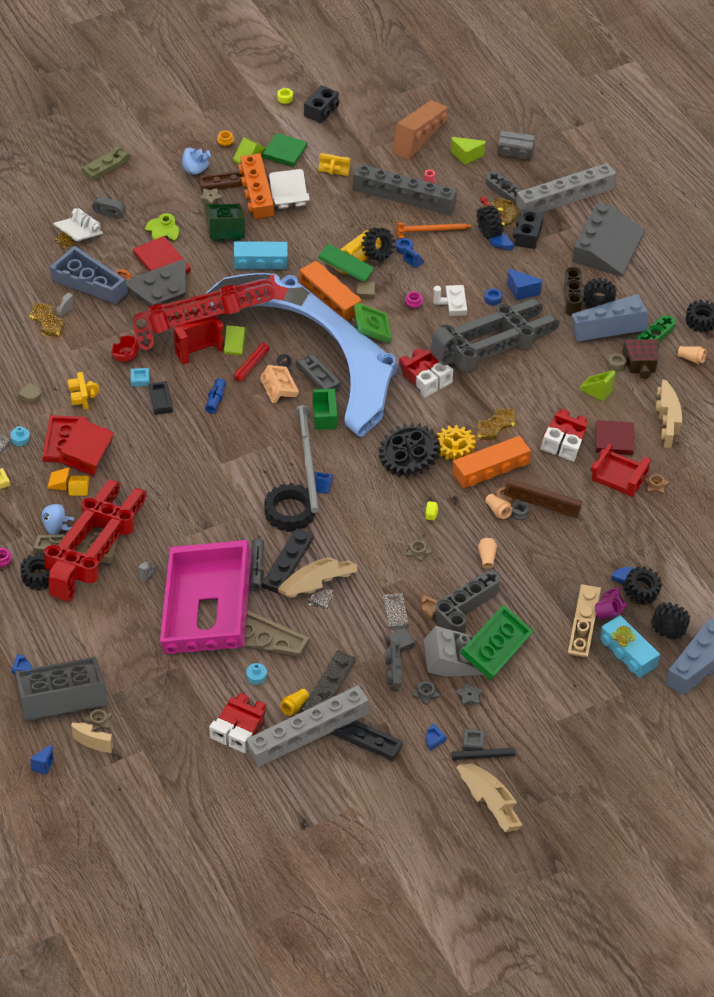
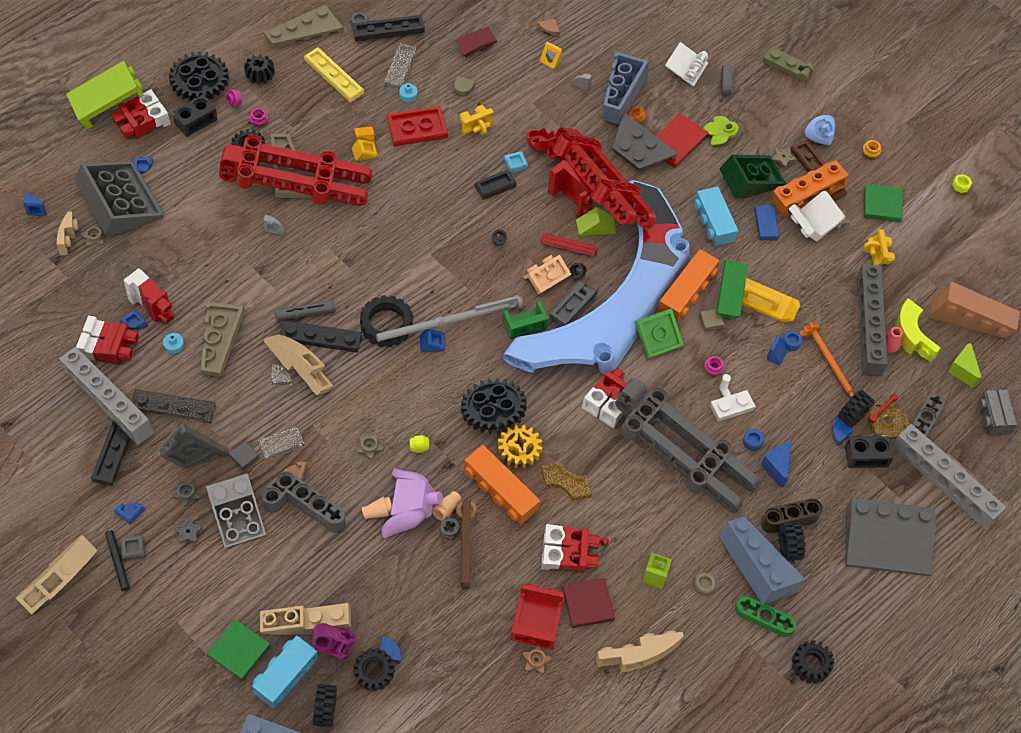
camera: 70 degrees right, 10 degrees up
(23, 319) = (551, 55): none -> yellow slope
(50, 323) = (566, 69): clear yellow tile -> none
(53, 517) = (311, 140): light blue piece -> none
(85, 446) = (404, 138): red panel -> none
(203, 574) = (274, 271): dark pink panel -> none
(204, 674) = (148, 294): none -> red hips
(215, 395) = (511, 225): blue pin -> none
(218, 701) = (134, 321): none -> blue tile
(226, 406) = (503, 237): none -> black hinge
(248, 147) = (863, 172): lime slope -> none
(277, 227) = (766, 223): none -> blue tile
(292, 704) = (141, 380): yellow cone -> none
(321, 104) = (965, 216): black brick -> none
(370, 243) = (764, 318): black tyre -> none
(416, 169) = (912, 337): none -> neon yellow arch
(489, 522) = (411, 502): none -> lavender torso
(496, 642) = (251, 538): green plate -> none
(597, 678) = (238, 650): none -> green tile
(623, 635) = (280, 652): clear yellow plate -> none
(641, 356) = (718, 607): dark brown torso -> none
(692, 353) = (746, 664): light nougat cone -> none

